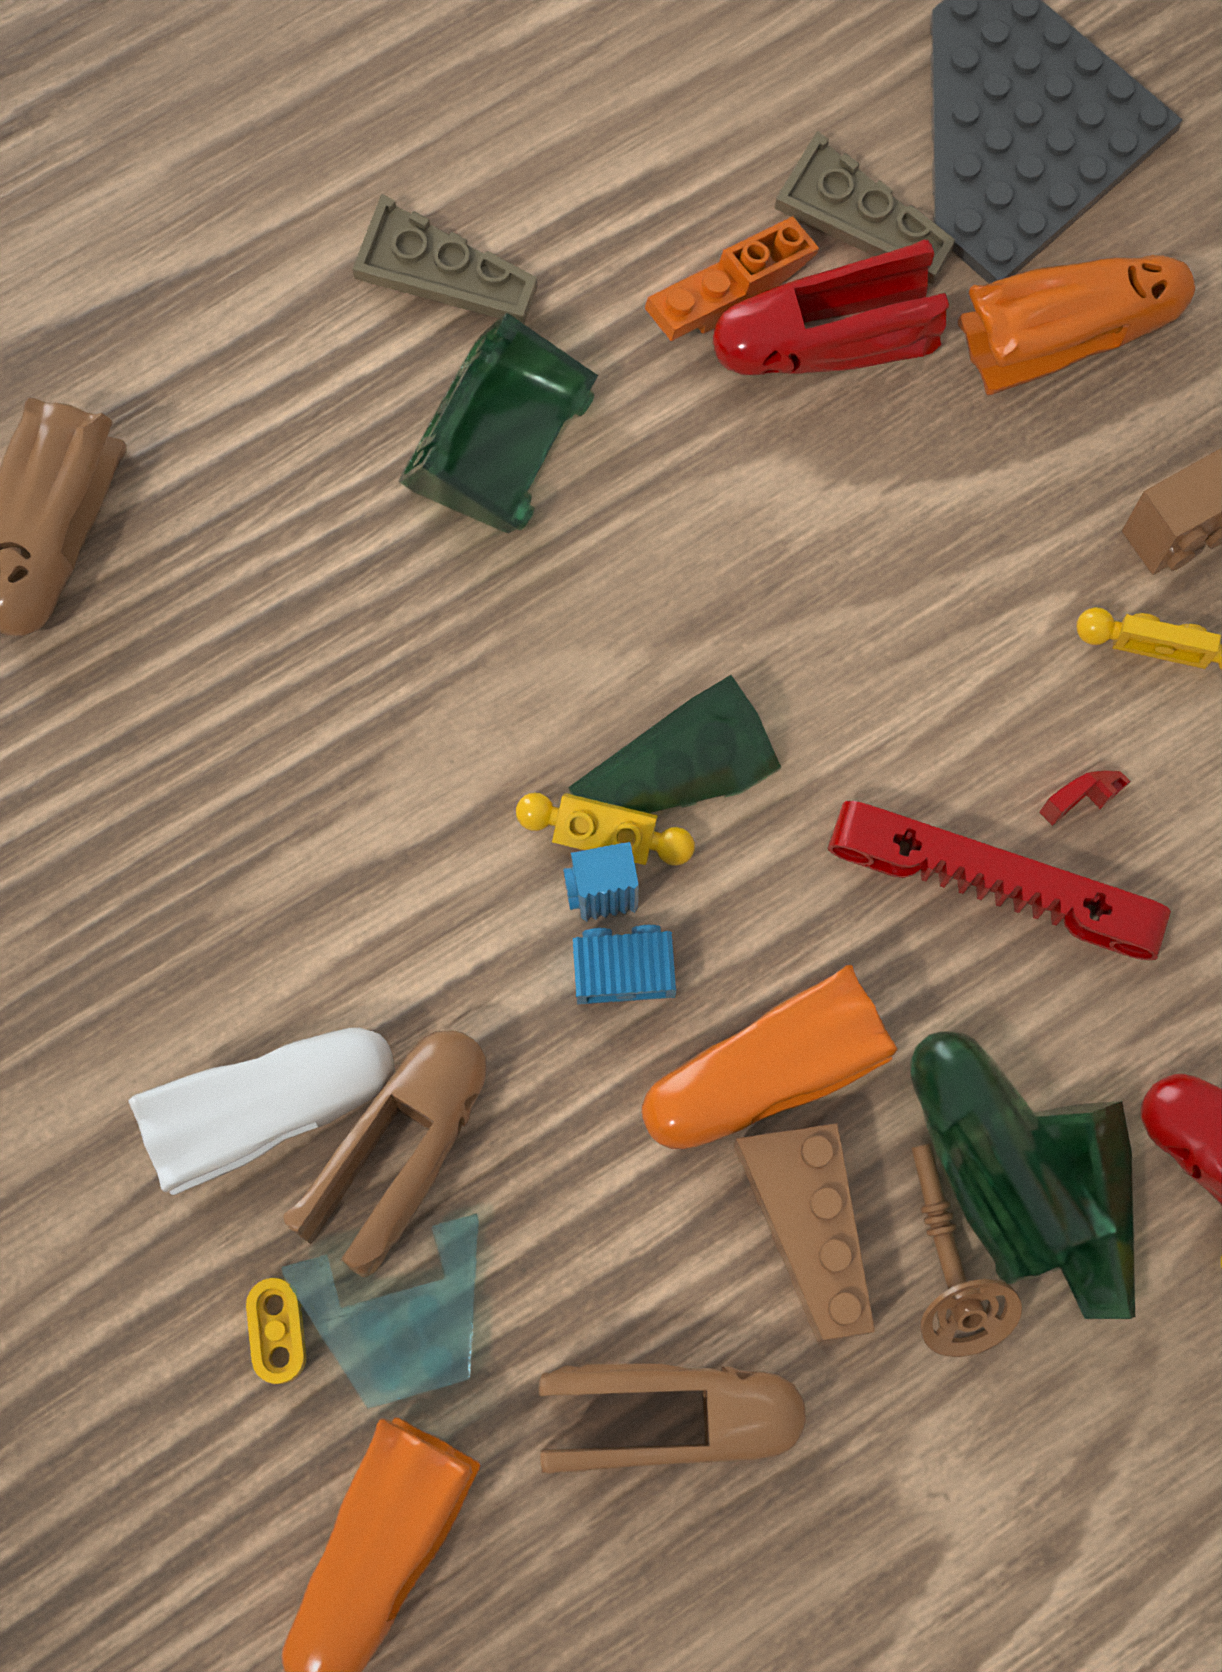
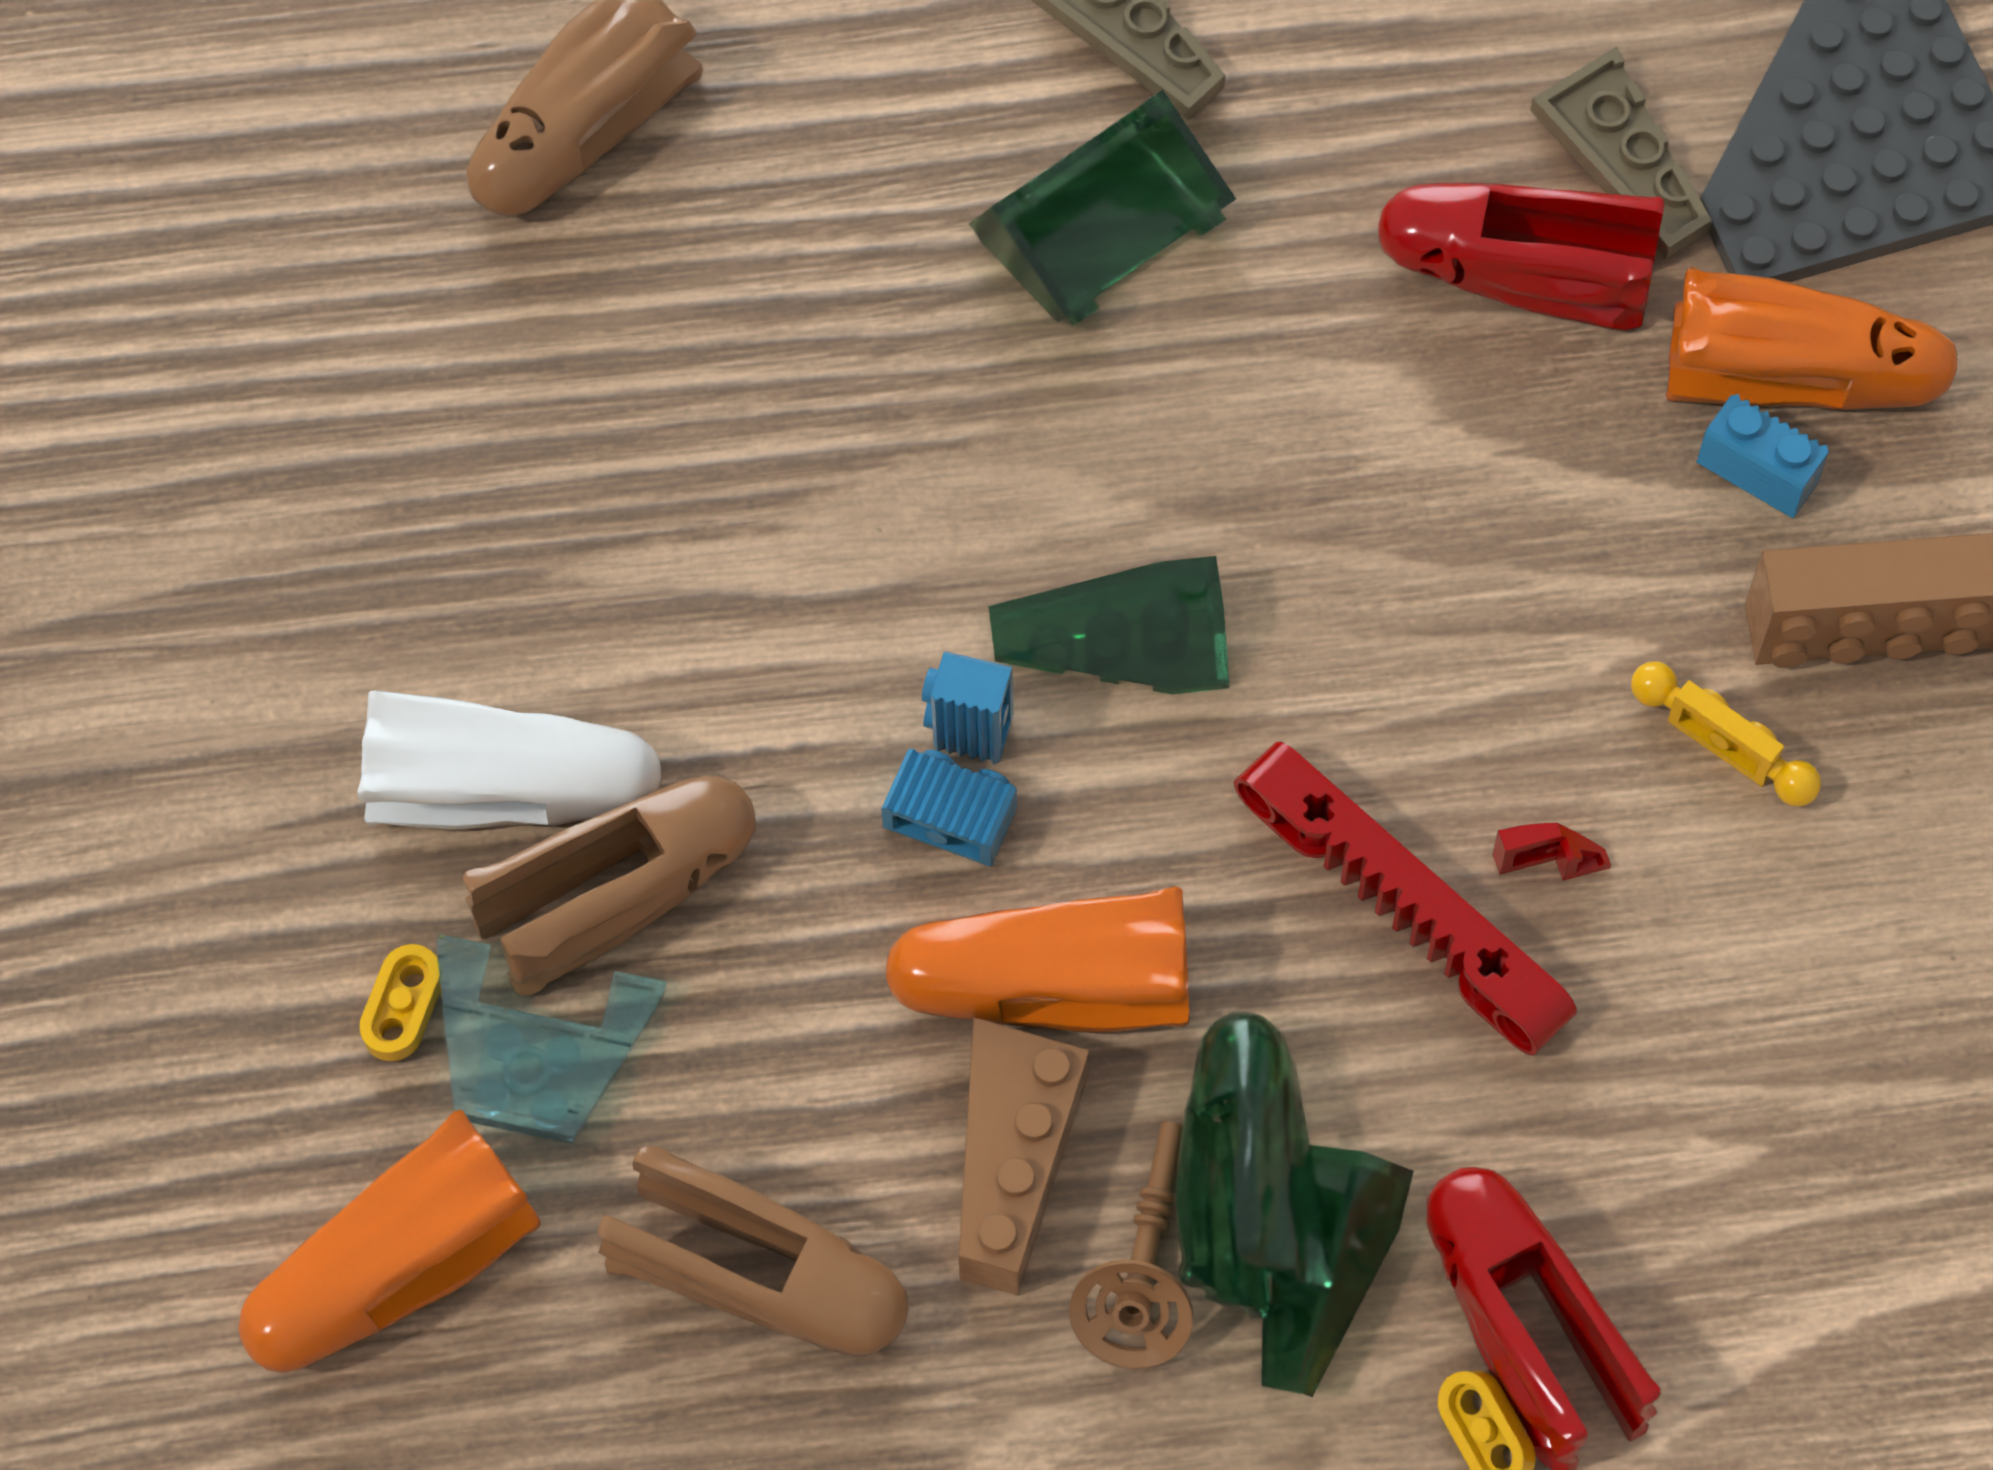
camera: 25 degrees right, 10 degrees down
(596, 824) = (987, 639): yellow plate -> none
(741, 273) = (1455, 155): orange slope -> none
(1086, 410) = (1762, 455): none -> dark azure brick

